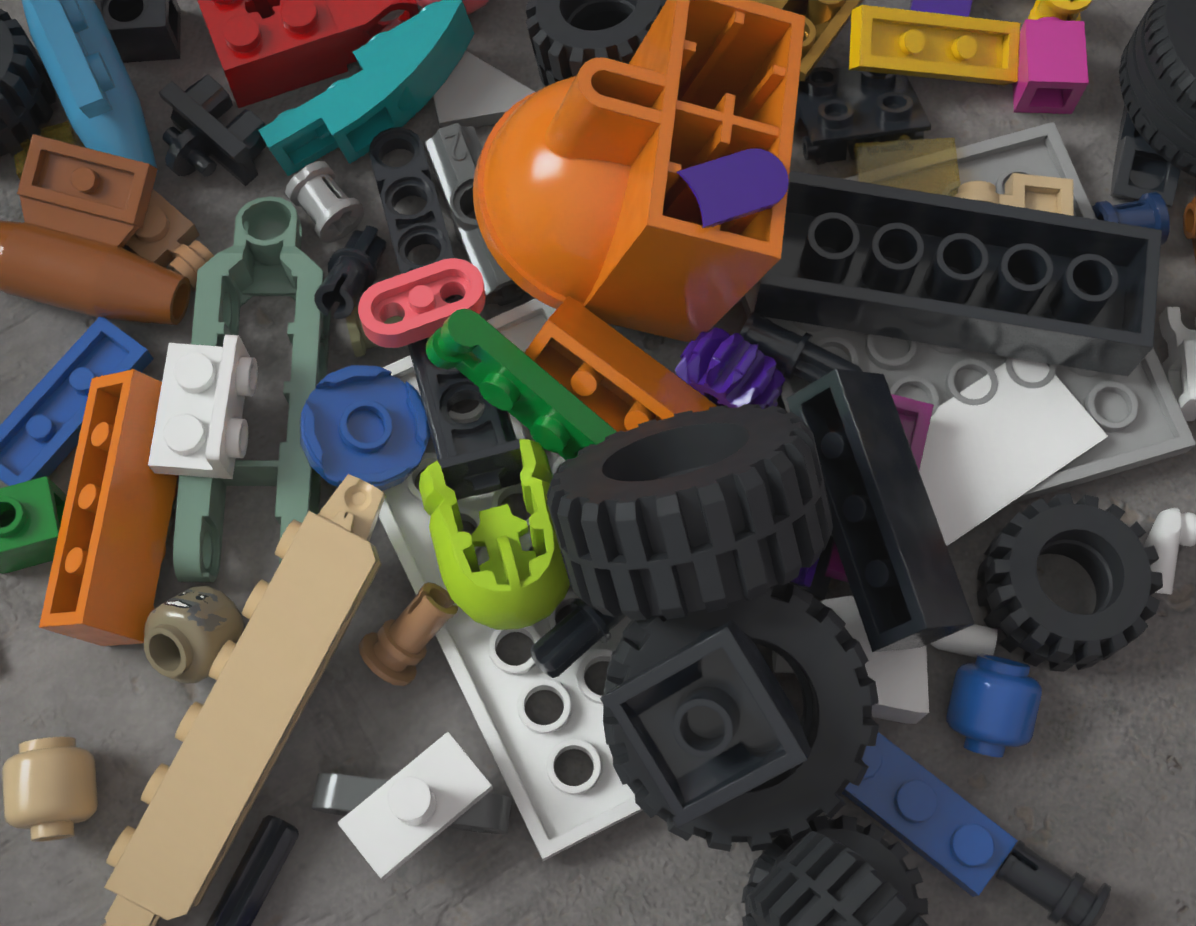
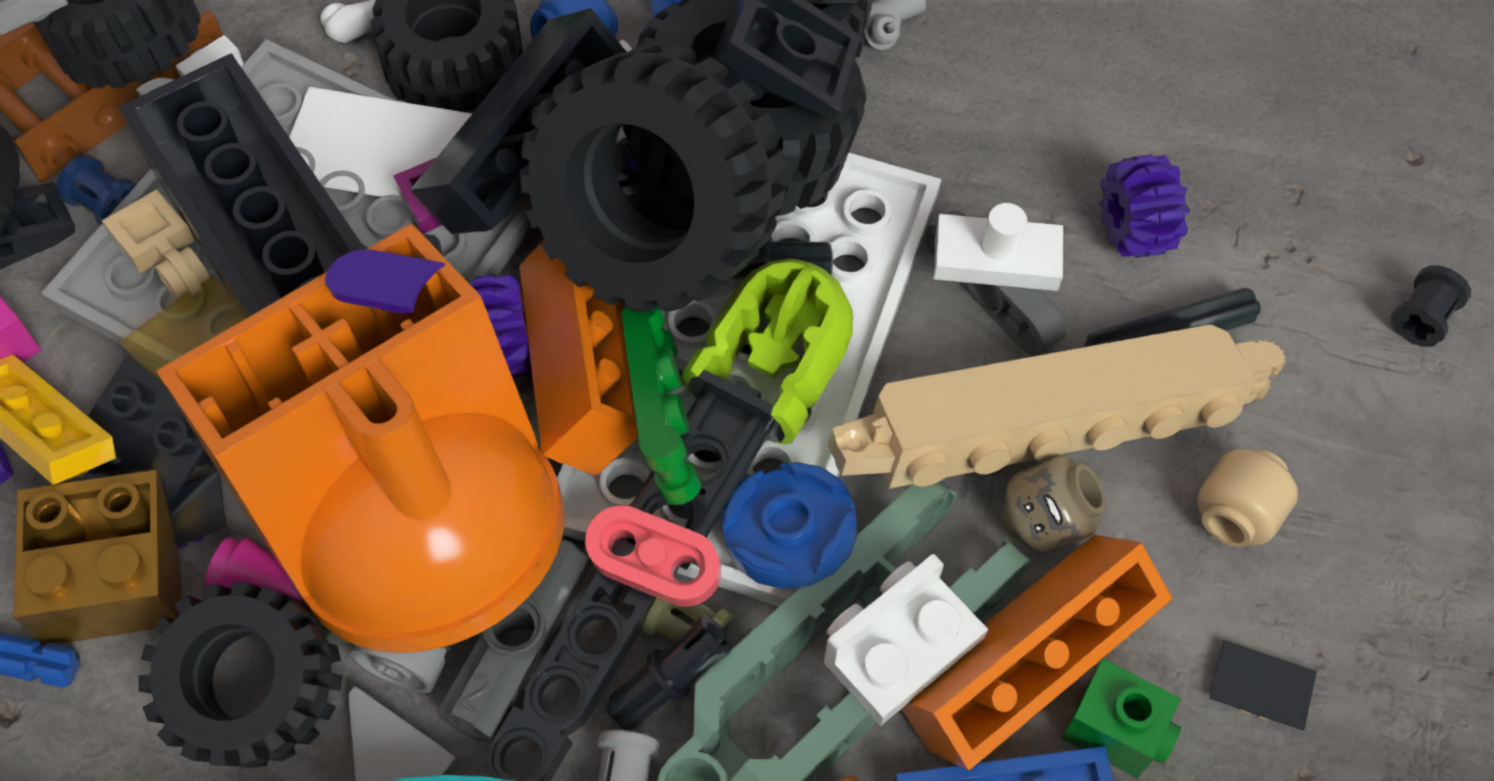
camera: 135 degrees left, 10 degrees down
(403, 641) = (890, 364): medium nougat pin -> none

